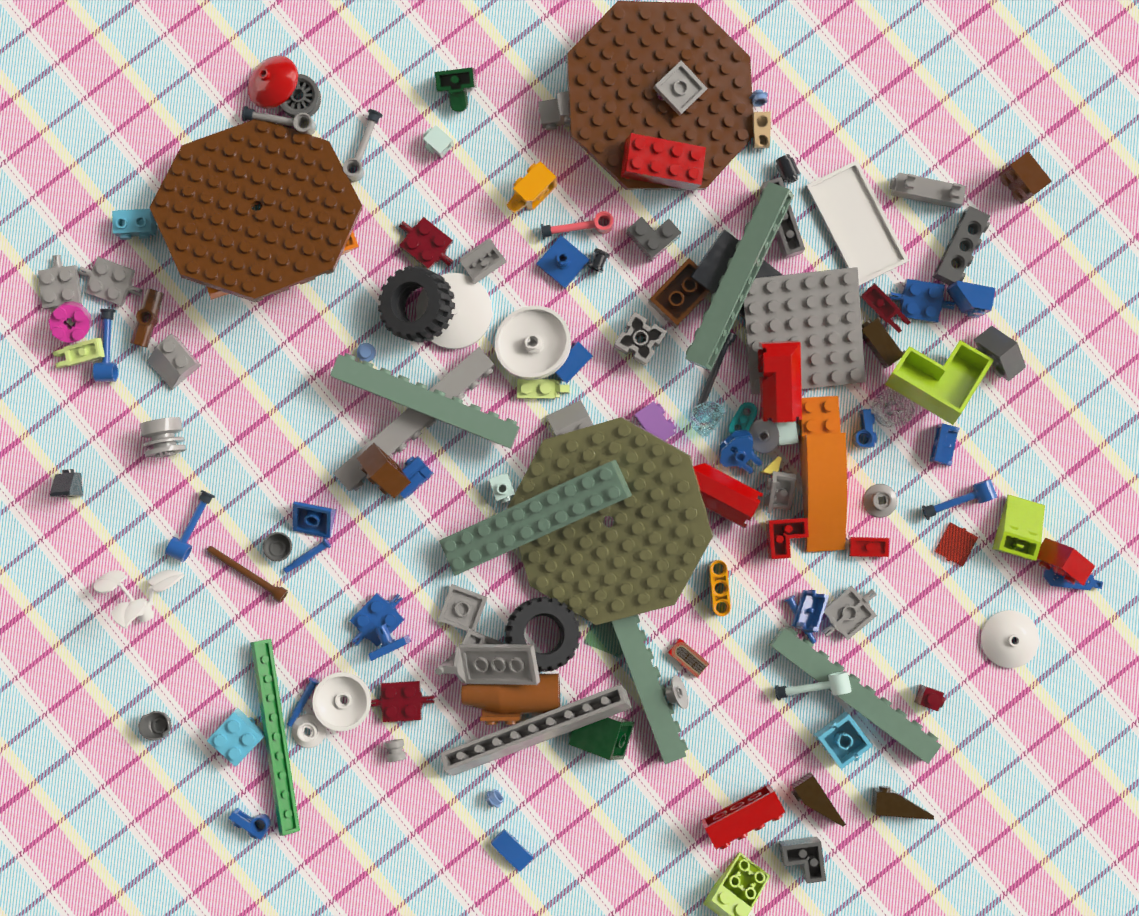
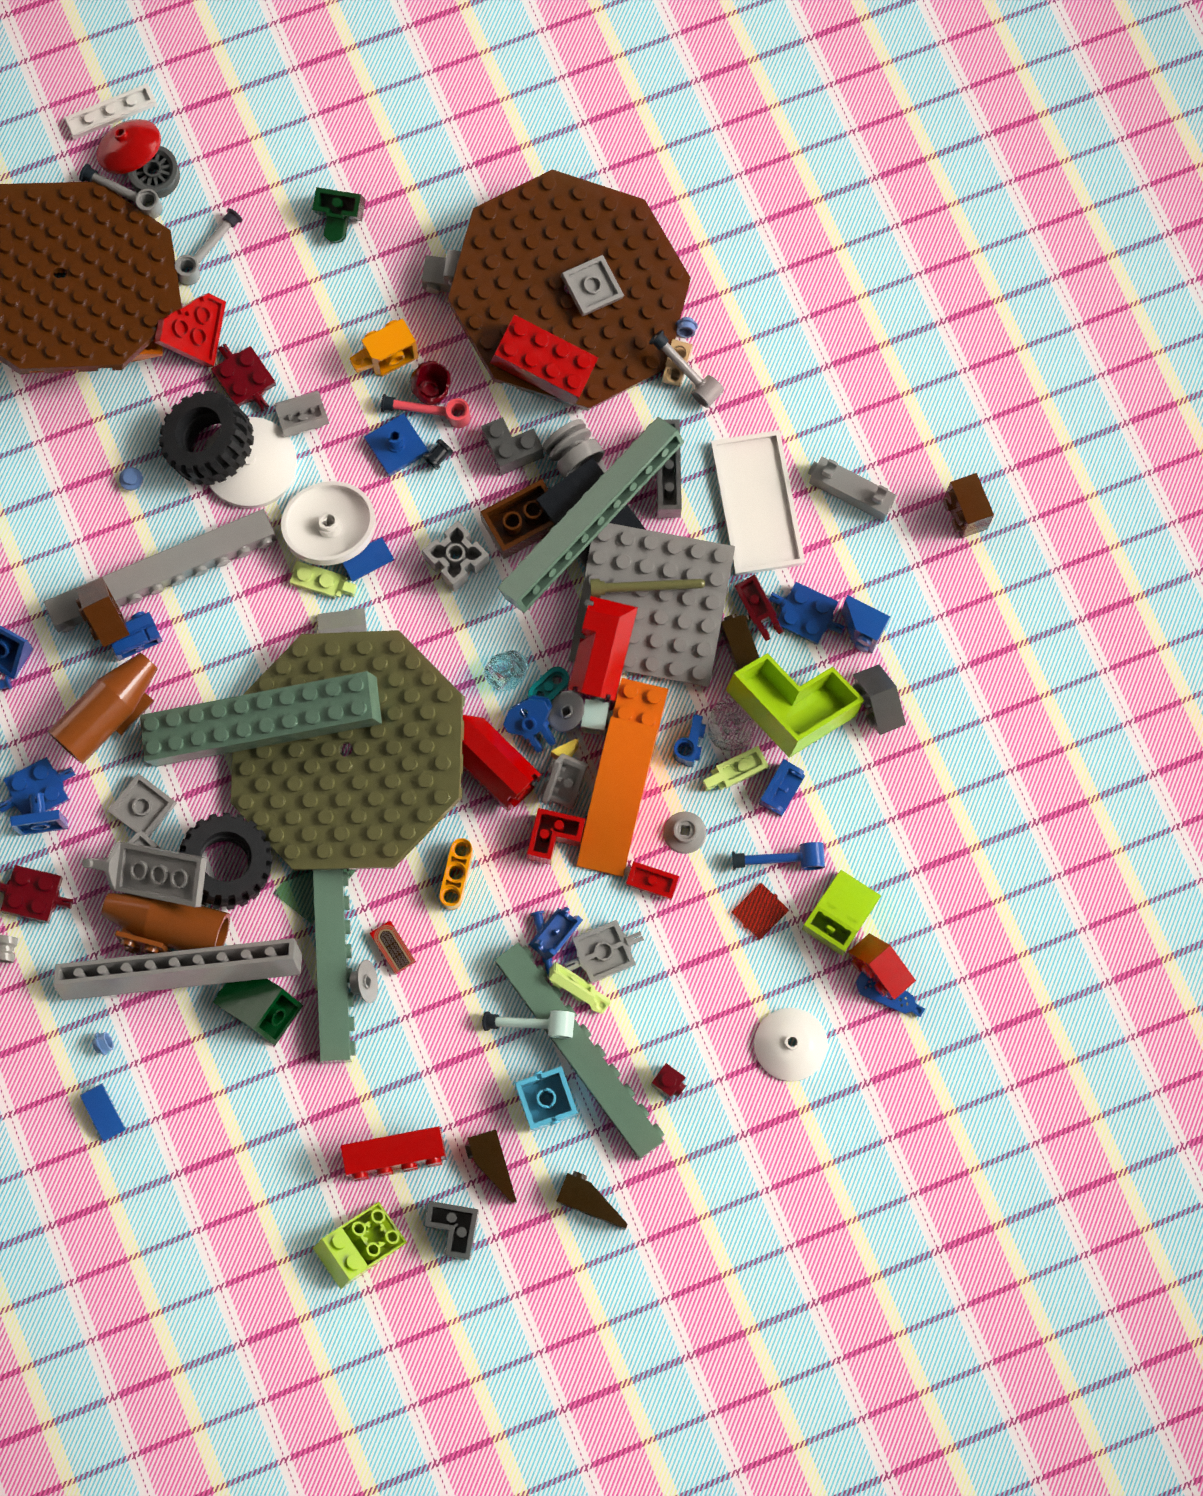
camera: 15 degrees right, 10 degrees down
(247, 56) = (110, 111): none -> white tile
(375, 217) = (193, 329): none -> red plate
(410, 544) = (105, 707): none -> dark orange piece
(425, 401) = (179, 550): sand green brick -> none
(437, 141) = (295, 267): light aqua brick -> none
(502, 487) = (236, 678): light aqua brick -> none
(575, 205) = (430, 382): none -> dark red hair
(653, 421) = (440, 652): medium lavender brick -> none
(704, 225) = (572, 447): none -> light grey wheel
(713, 373) = (559, 589): black piece -> none
(762, 333) = (600, 587): none -> olive piece
(787, 169) = (693, 416): black brick -> none
(790, 144) = (706, 389): none -> light grey piece
(839, 647) = (578, 987): none -> yellowish green hinge
(906, 441) = (736, 769): none -> yellowish green hinge
(970, 218) = (894, 535): dark grey brick -> none

